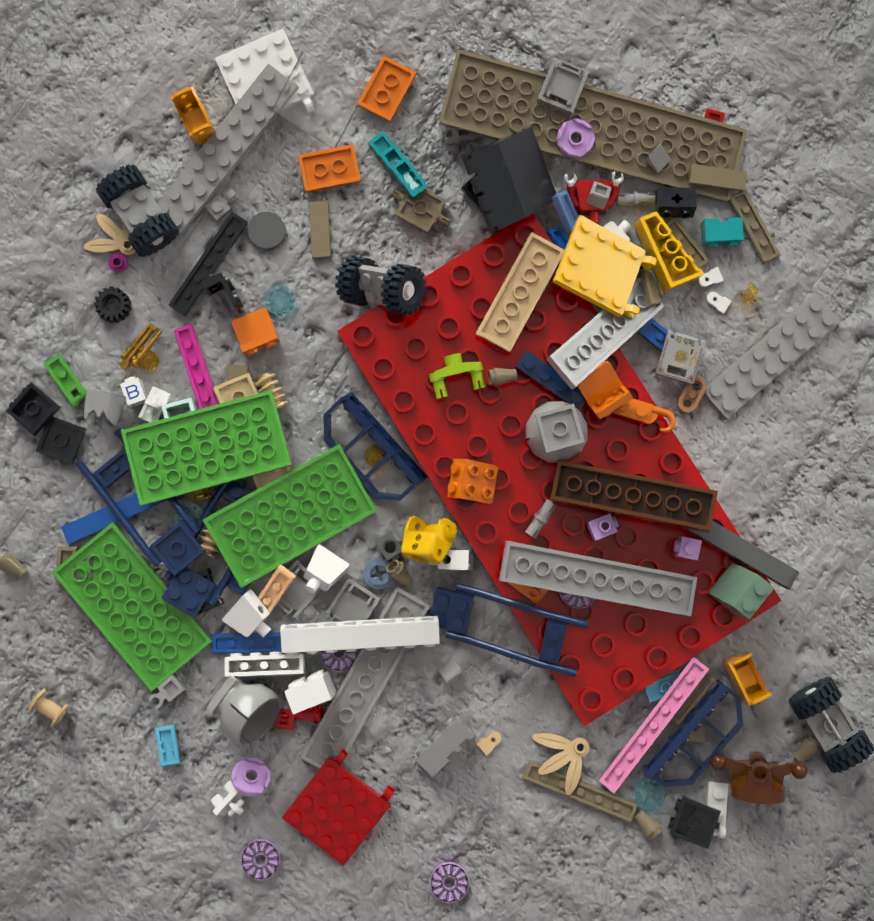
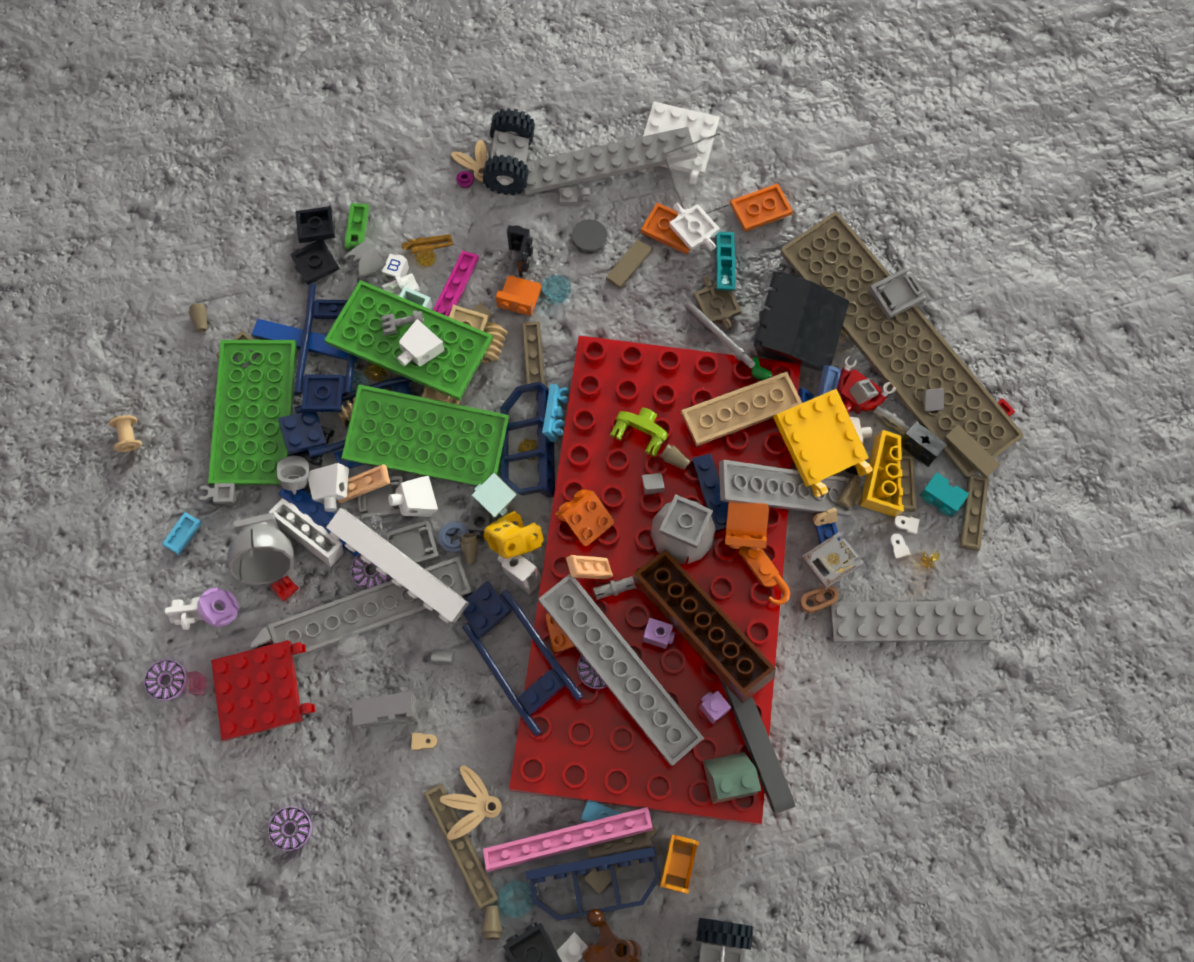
camera: 40 degrees right, 15 degrees down
(102, 299) = (435, 193): black tyre -> none
(193, 115) = (603, 126): light orange piece -> none
(199, 426) = (391, 323): none -> light grey hinge
(208, 263) = (536, 223): black plate -> none
(212, 629) = (293, 473): none -> light grey piece
(222, 449) = (419, 345): none -> white torso
(287, 842) = (196, 683): none -> clear pink plate
(307, 770) = (263, 639): none -> light grey slope
(310, 692) = (319, 572): white brick -> none
(311, 374) = (533, 352): none -> dark tan tile
(311, 714) = (306, 597): red cone -> none
(349, 155) = (694, 227): none -> white plate
(371, 410) = (554, 412): none -> medium azure plate
(385, 520) = (494, 496): none -> light aqua plate
(397, 289) = (647, 330): black plate -> none
(480, 244) = (739, 353): none -> light grey bar
(501, 410) = (653, 483): none -> light grey slope
(508, 249) = (759, 372): none -> green arm
(513, 521) = (589, 567): none -> light nougat tile
(586, 135) = (873, 346): lavender tile -> none
(649, 326) = (829, 516): none -> tan piece

